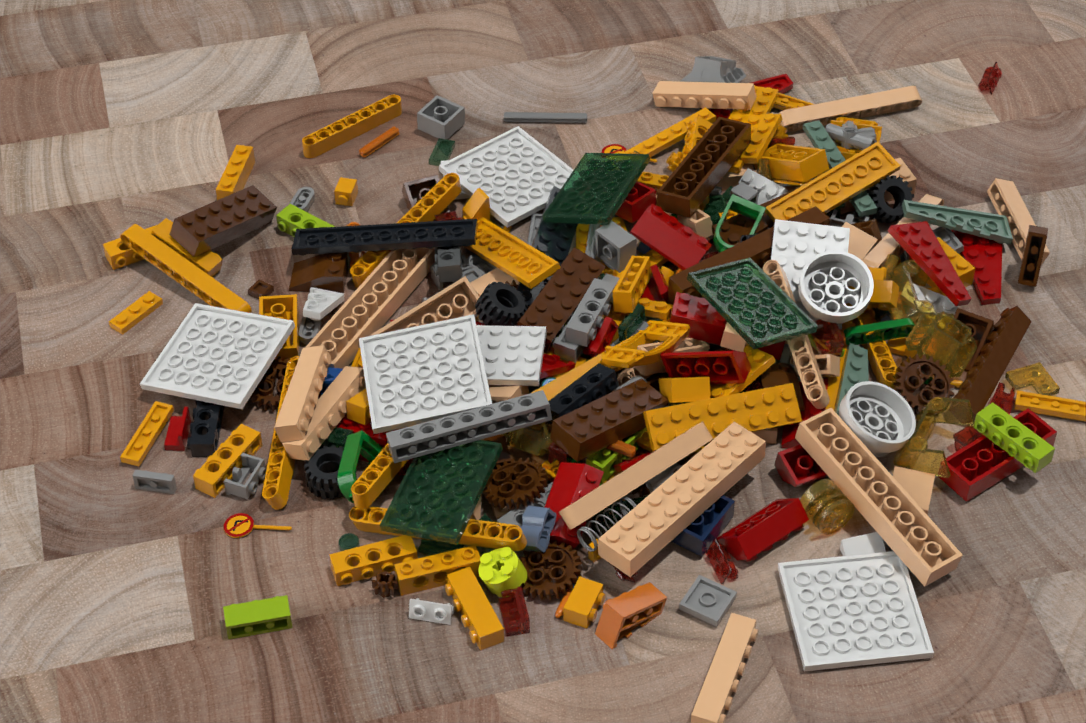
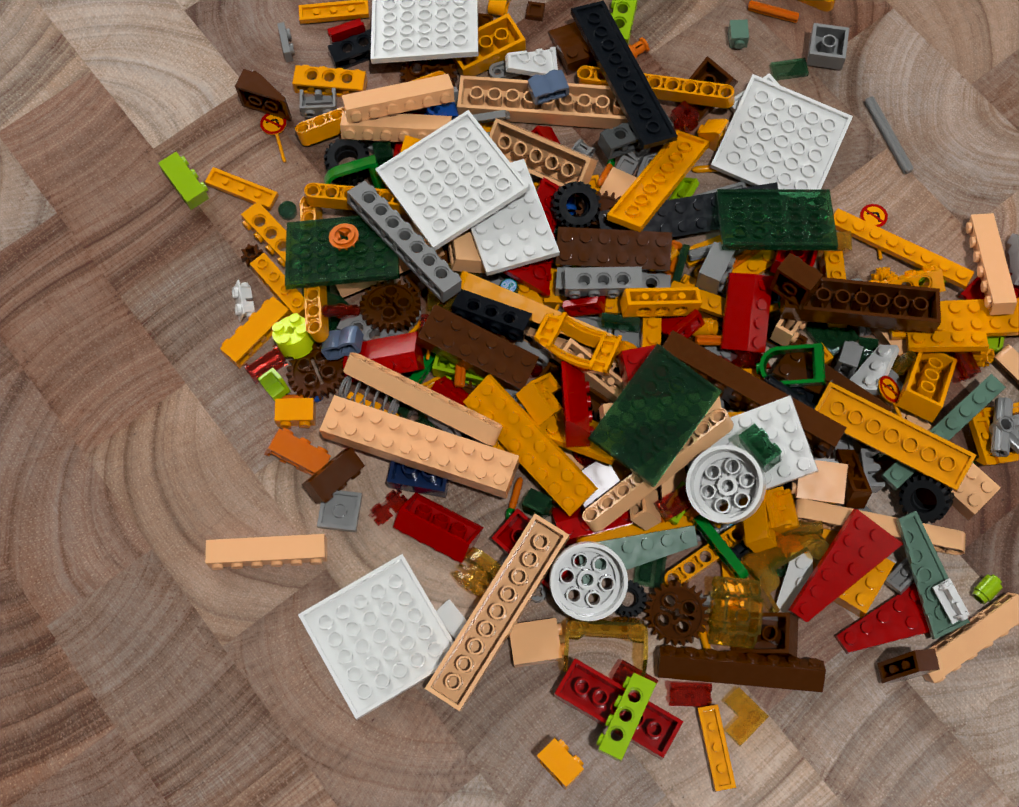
camera: 70 degrees right, 25 degrees up
(210, 511) = (260, 95): none -> reddish brown slope
(299, 571) = (241, 188): none -> light orange plate
(346, 191) = (687, 16): light orange brick -> none
(357, 352) = (490, 116): none -> light grey tile
(362, 290) = (548, 86): none -> sand blue brick
(387, 167) = (738, 34): none -> sand green brick
(438, 469) = (345, 230): none -> orange gear
(504, 513) = (340, 310): none -> clear red pin
(545, 607) = (274, 384): none -> lime panel
(673, 583) = (333, 475): none -> reddish brown brick
(675, 177) = (796, 281): none -> reddish brown brick
(771, 474) = (514, 497): none -> orange piece
(776, 442) = (538, 504): none -> clear green brick
(809, 247) = (760, 447): none -> clear green brick
(979, 200) = (987, 589): none -> lime brick
(981, 211) = (951, 601): none -> white hinge
(1036, 508) = (560, 763): none -> light orange brick

